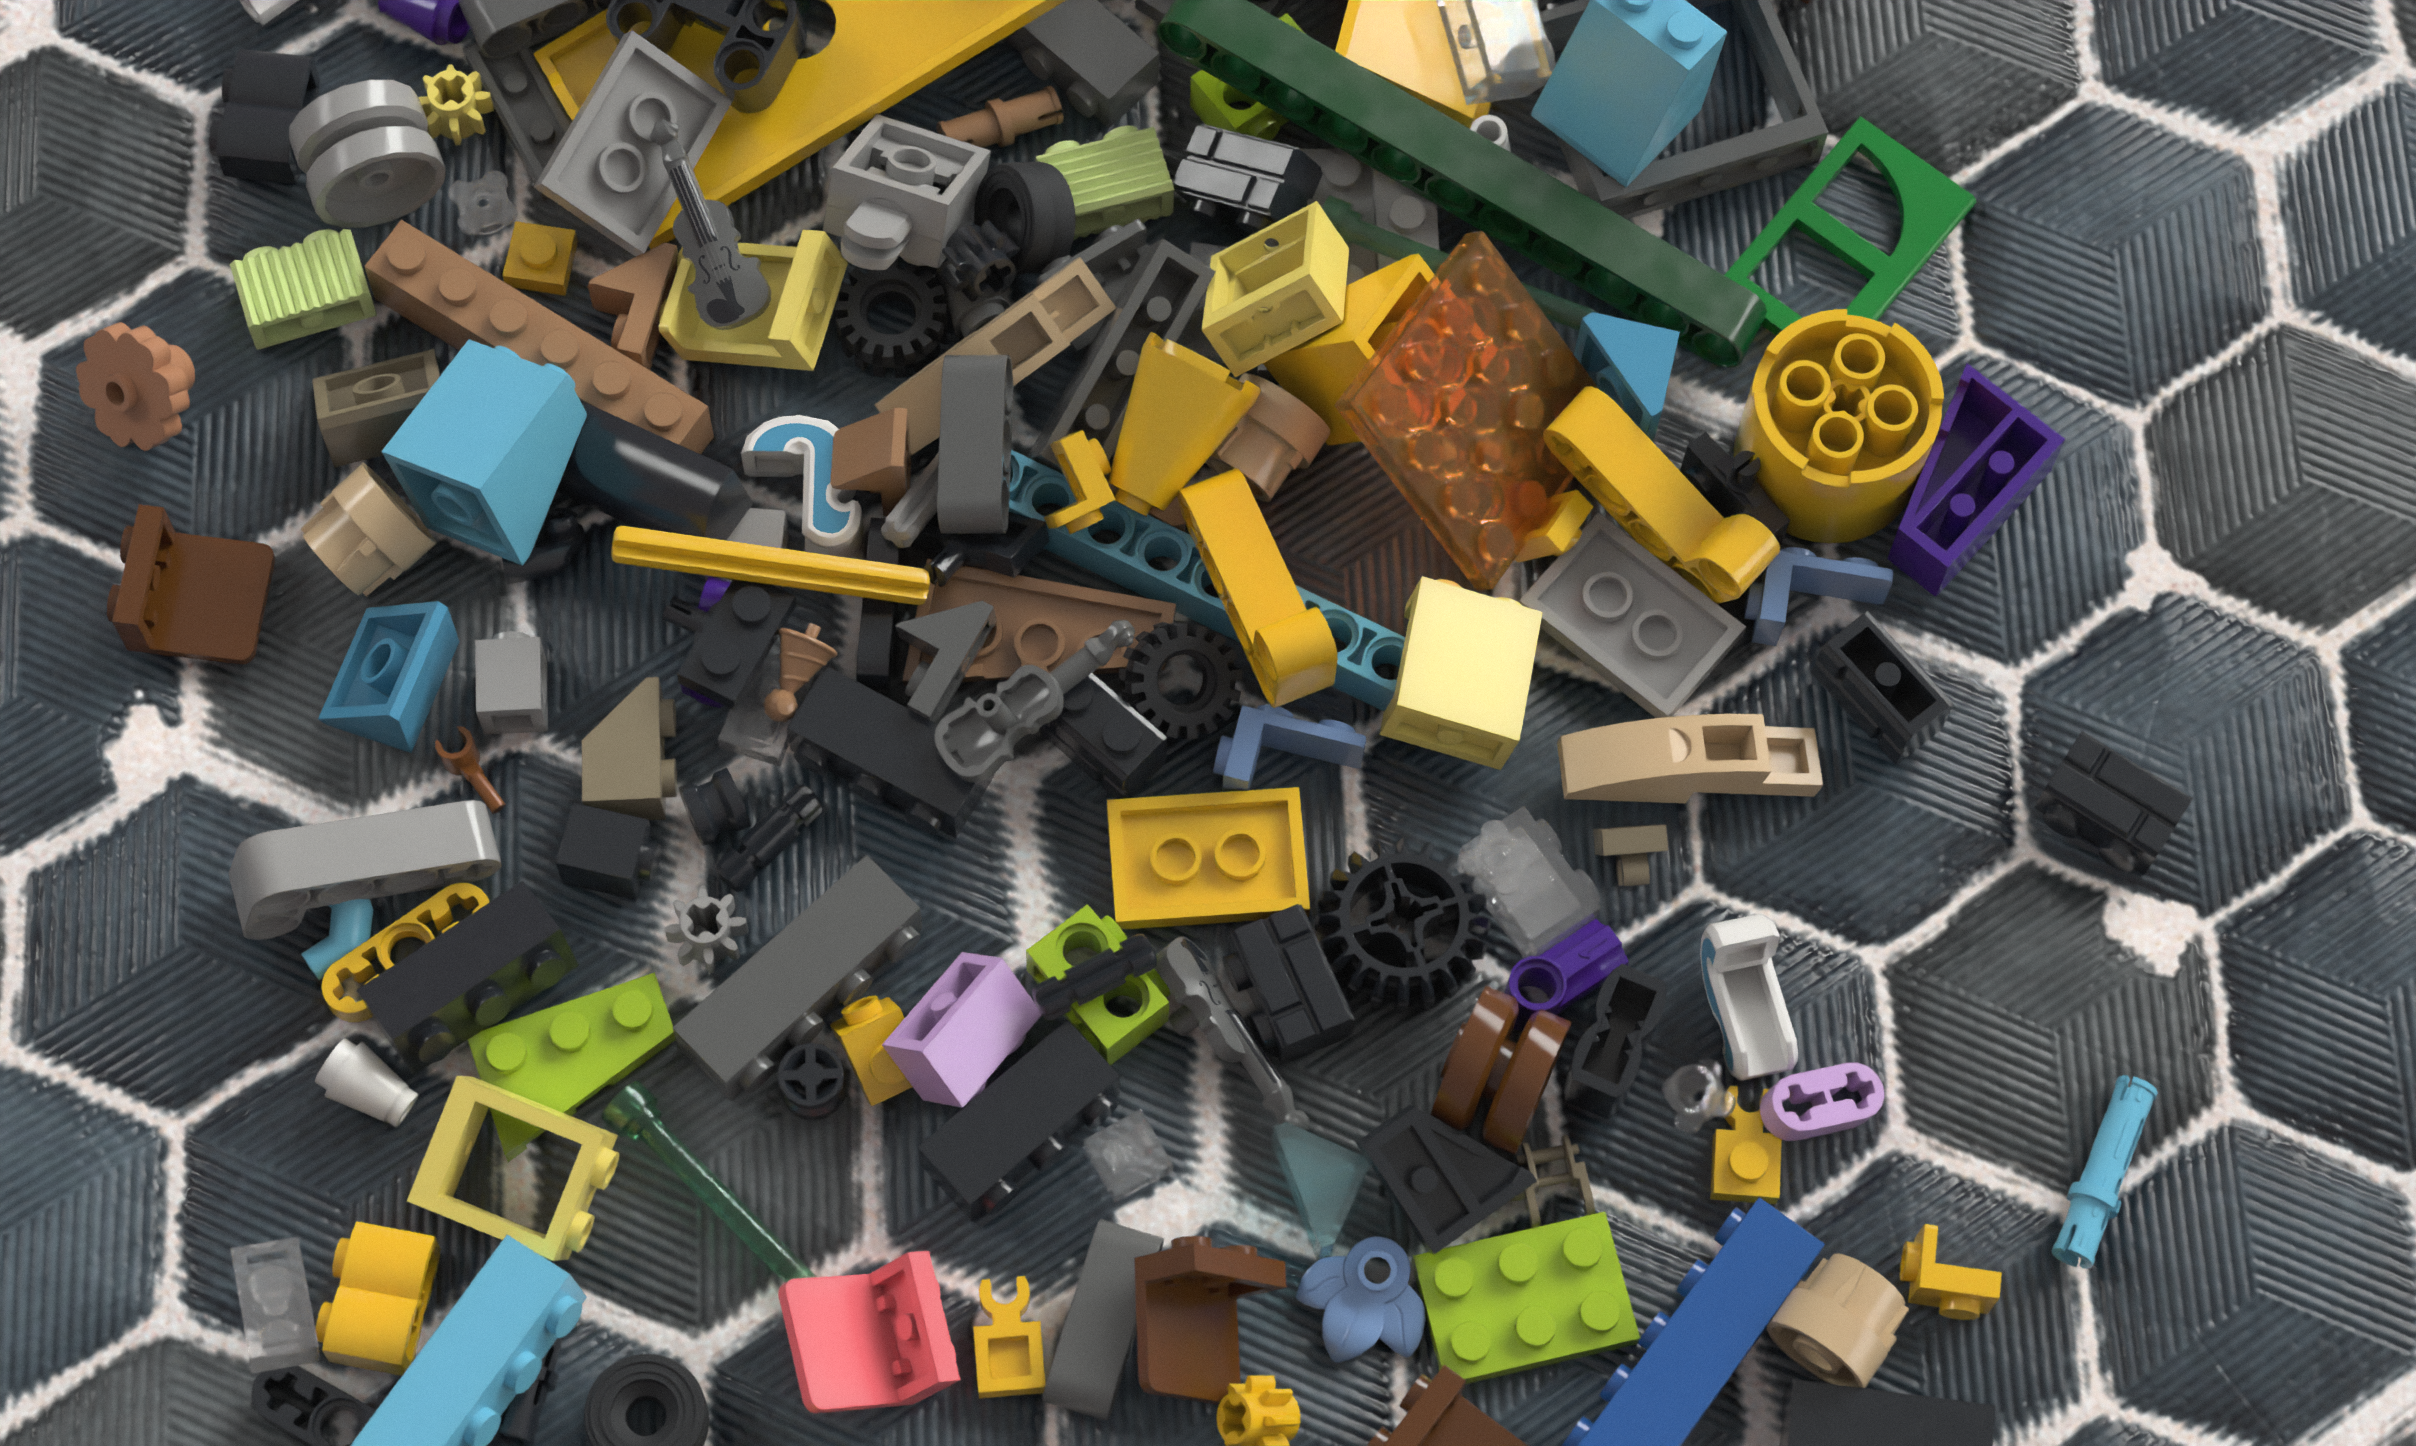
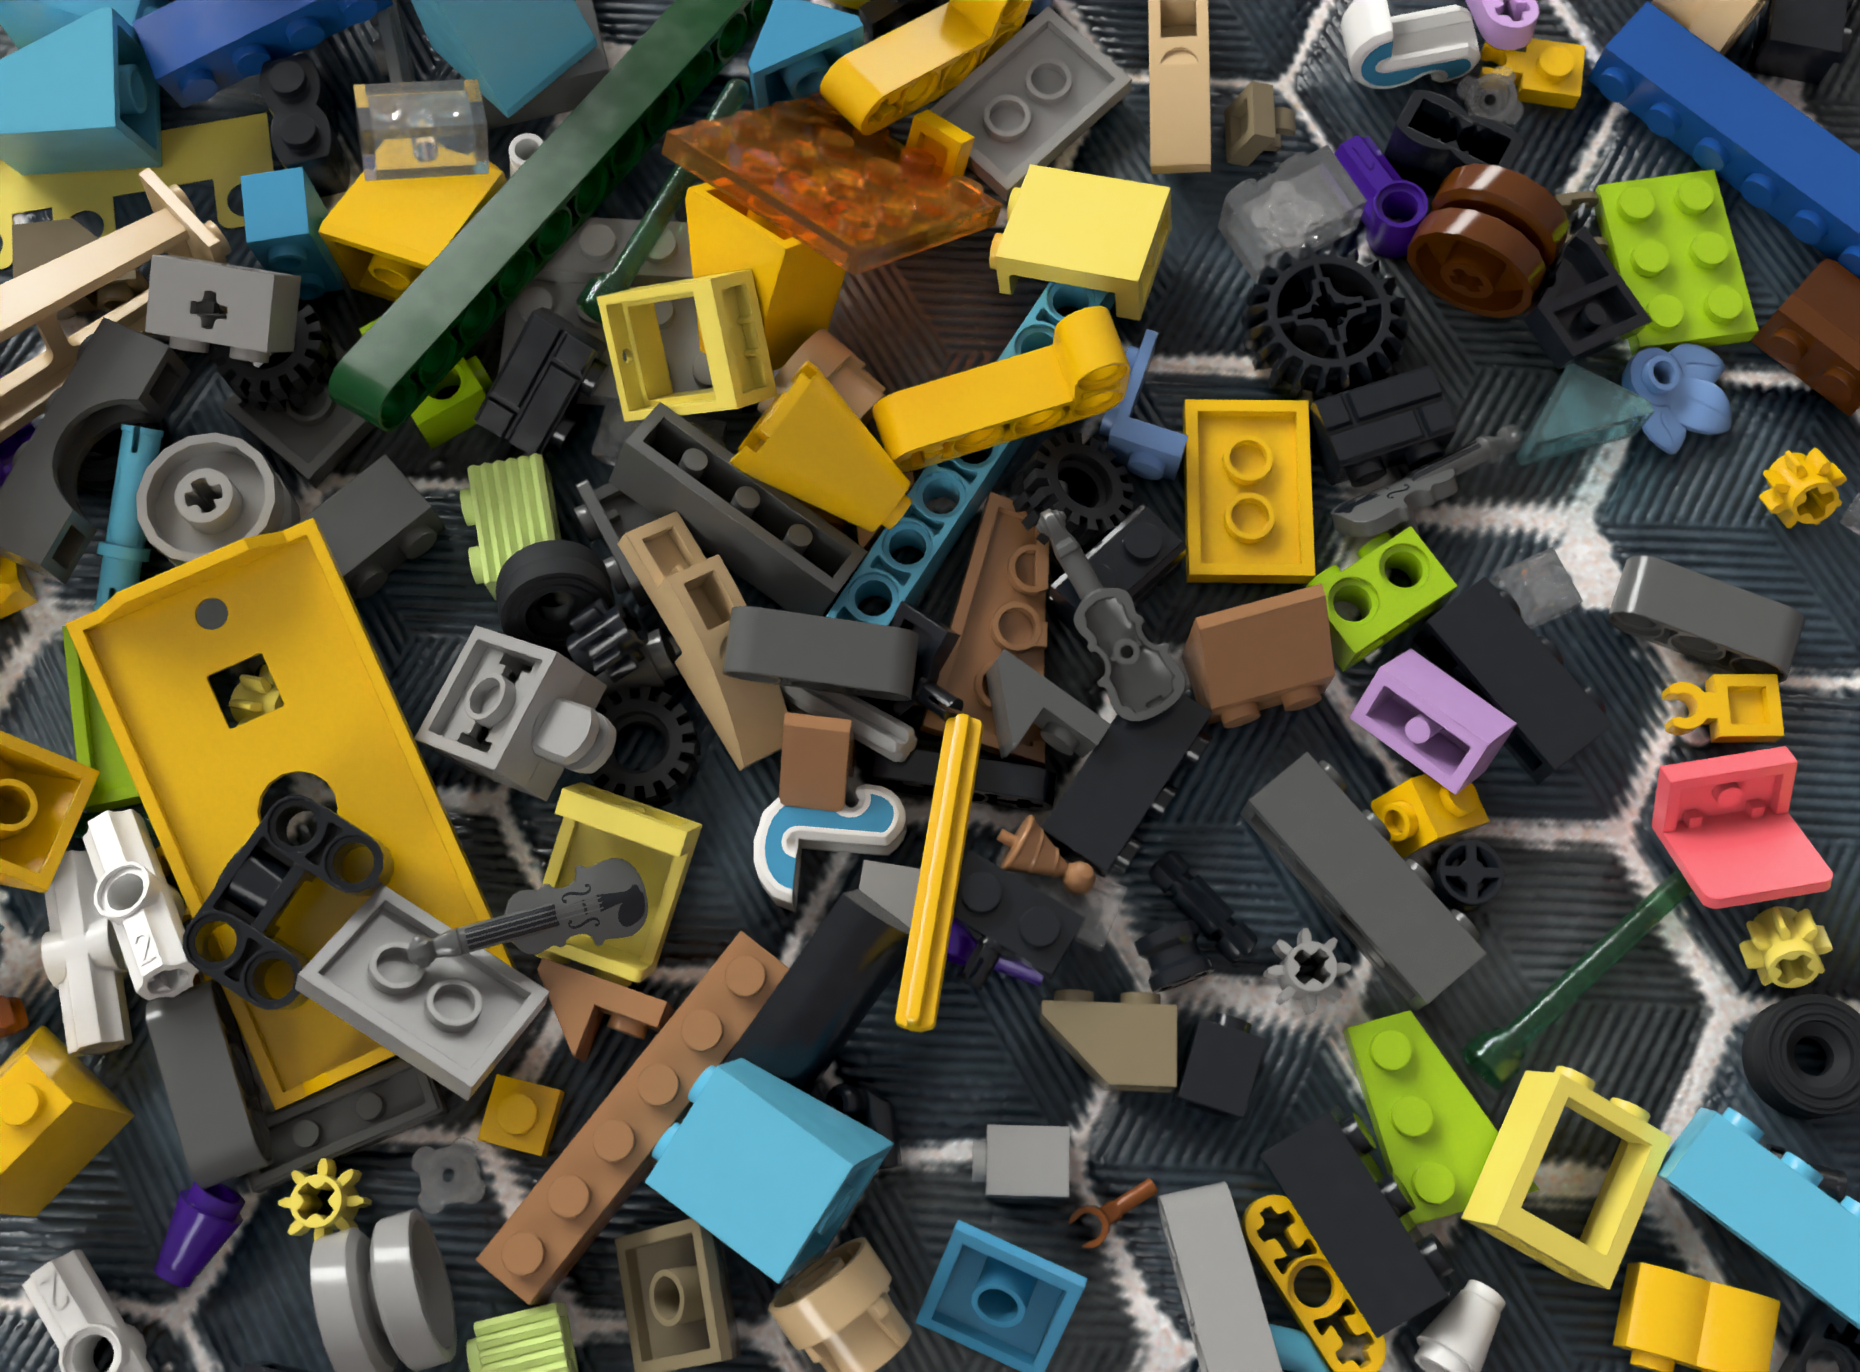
camera: 80 degrees left, 5 degrees up
(754, 1388) = (1785, 947): none -> light yellow gear
(1005, 120) = (429, 622): medium nougat pin -> none
(1015, 864) = (1261, 656): none -> medium nougat slope
(1084, 469) = (883, 546): yellow bracket -> none
(1094, 976) = (1393, 587): black axle -> none
(1191, 1316) = (1711, 539): reddish brown bracket -> none

